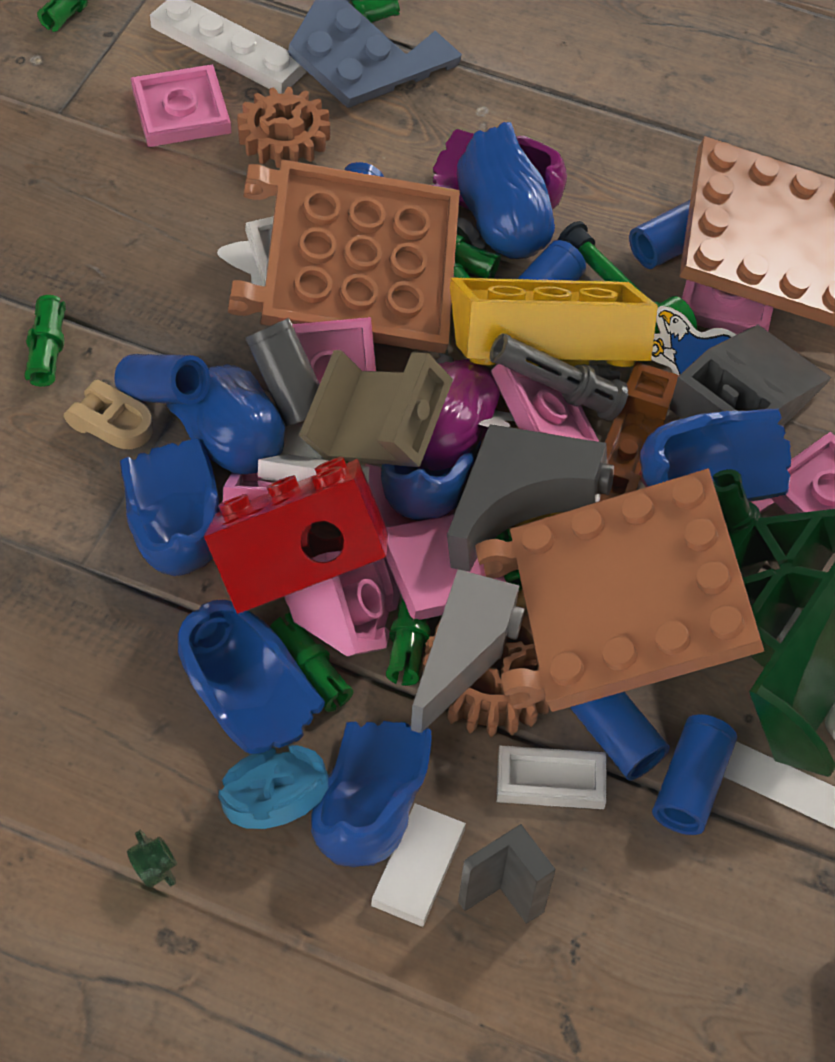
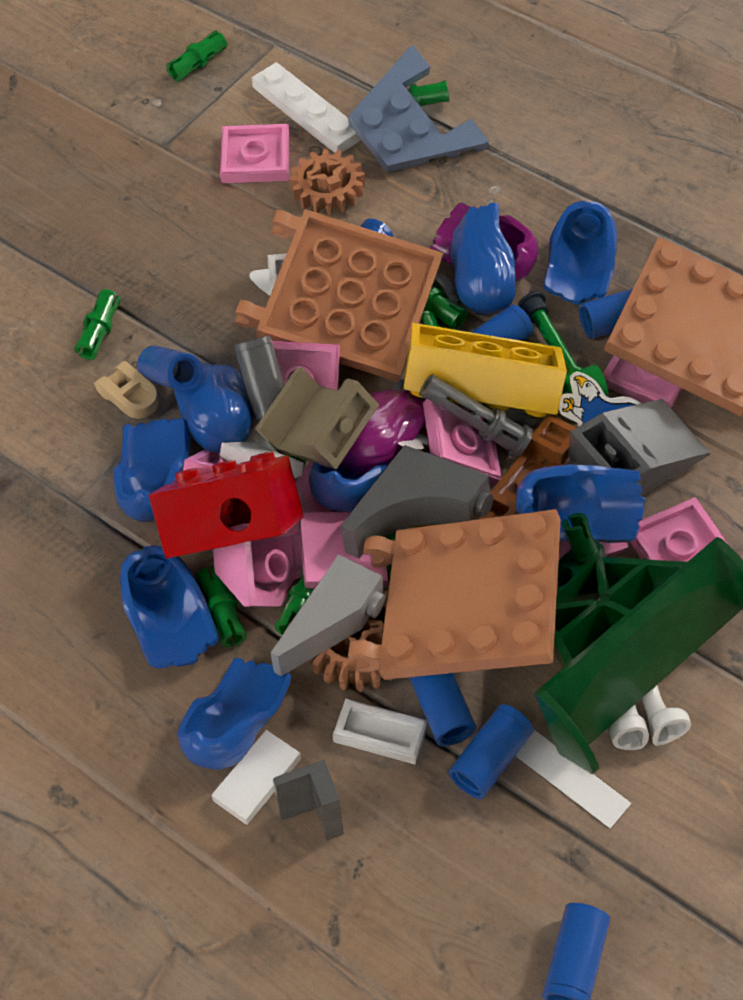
camera: 20 degrees right, 0 degrees up
(152, 860) = (58, 732): clear green plate -> none
(273, 787) = (161, 695): dark azure tile -> none
(615, 169) = (581, 253): none -> blue hair

